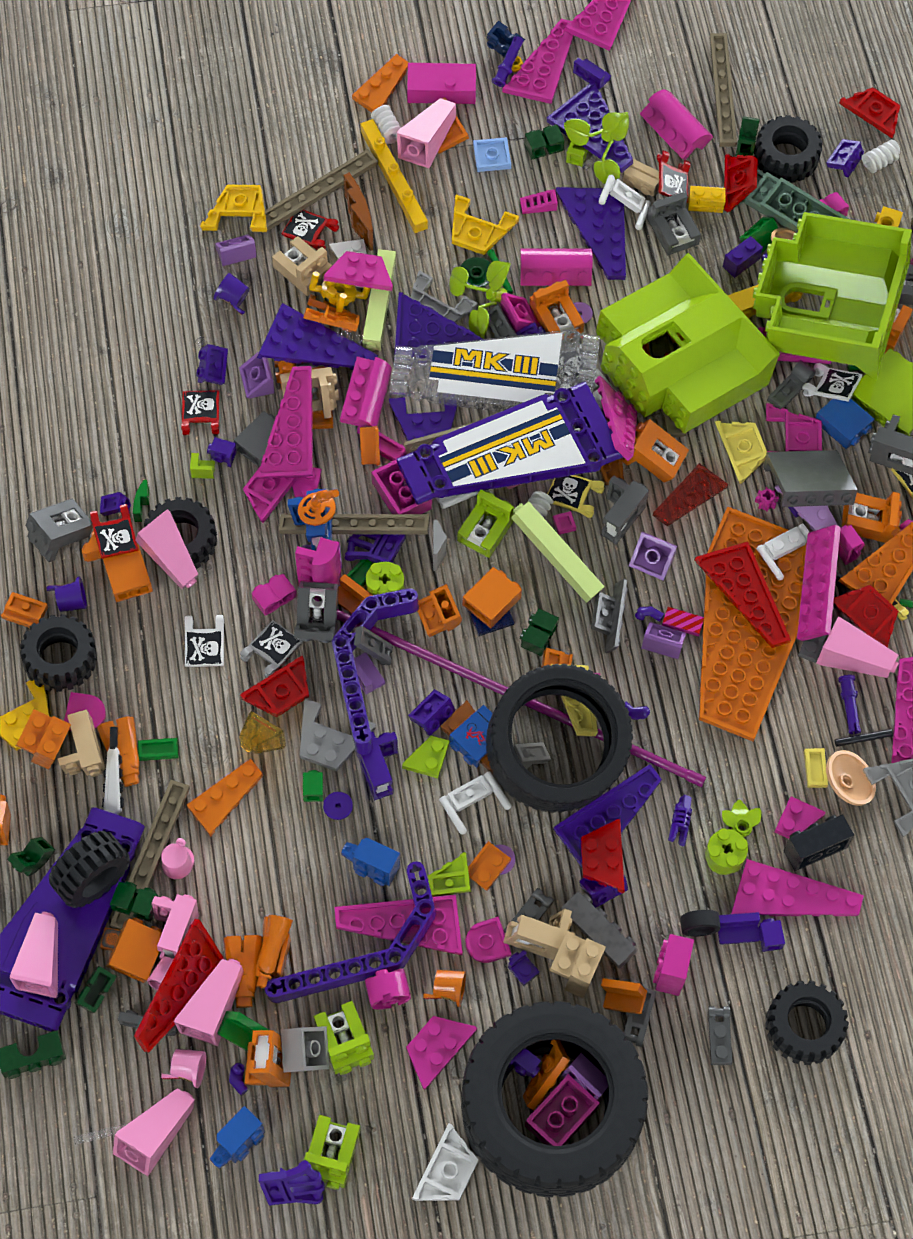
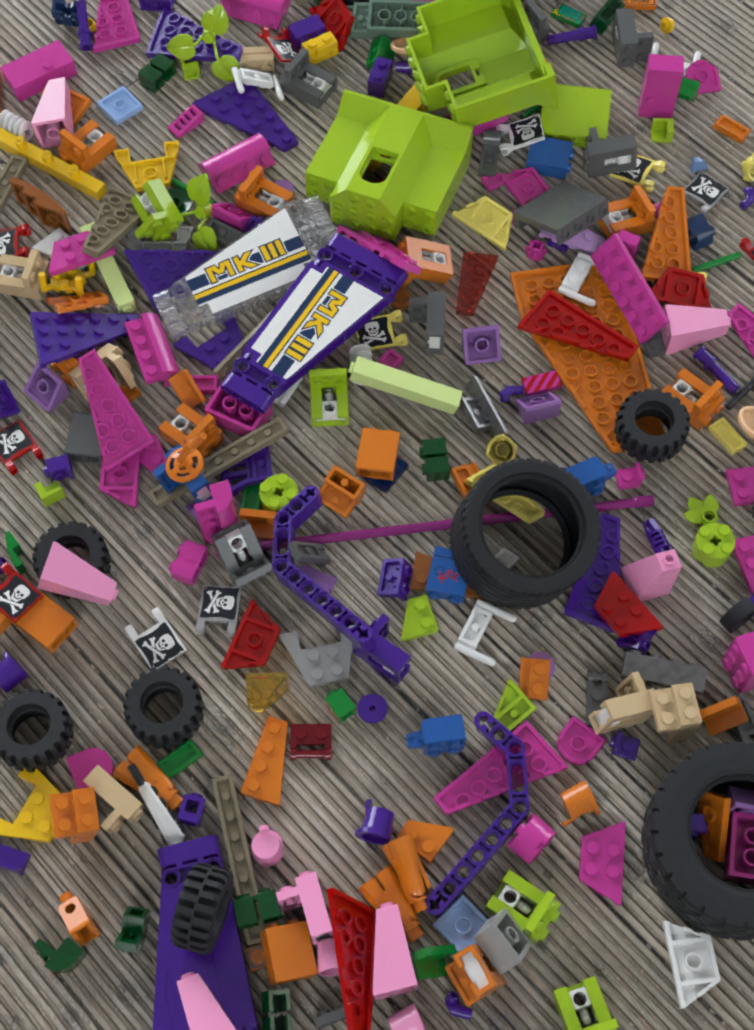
camera: 30 degrees left, 0 degrees up
(139, 787) = (190, 801): none -> dark purple brick
(163, 677) = (156, 683): none -> black tyre
(273, 796) = (310, 736): none -> dark red plate
(274, 898) = (376, 825): none -> dark purple hat
(286, 1014) = (460, 923): none -> light blue tile
(307, 935) = (427, 837): none -> orange wing
(354, 490) = (194, 425): none -> orange brick
(412, 259) = (111, 223): none -> dark tan wing
(434, 178) = (86, 146): none -> orange brick
(439, 545) = (301, 435): light grey slope -> none
(451, 273) = (156, 211): none -> lime brick
(600, 658) = (501, 449): none -> light yellow helmet
(646, 843) = (652, 575): none -> bright pink slope
(656, 727) = (593, 474): none -> blue hinge
(698, 750) = (630, 477): none -> dark pink bracket
(707, 174) = (305, 30): none -> dark purple brick
(750, 693) = (657, 405): none -> black tyre
(811, 728) = (698, 397): none -> orange brick

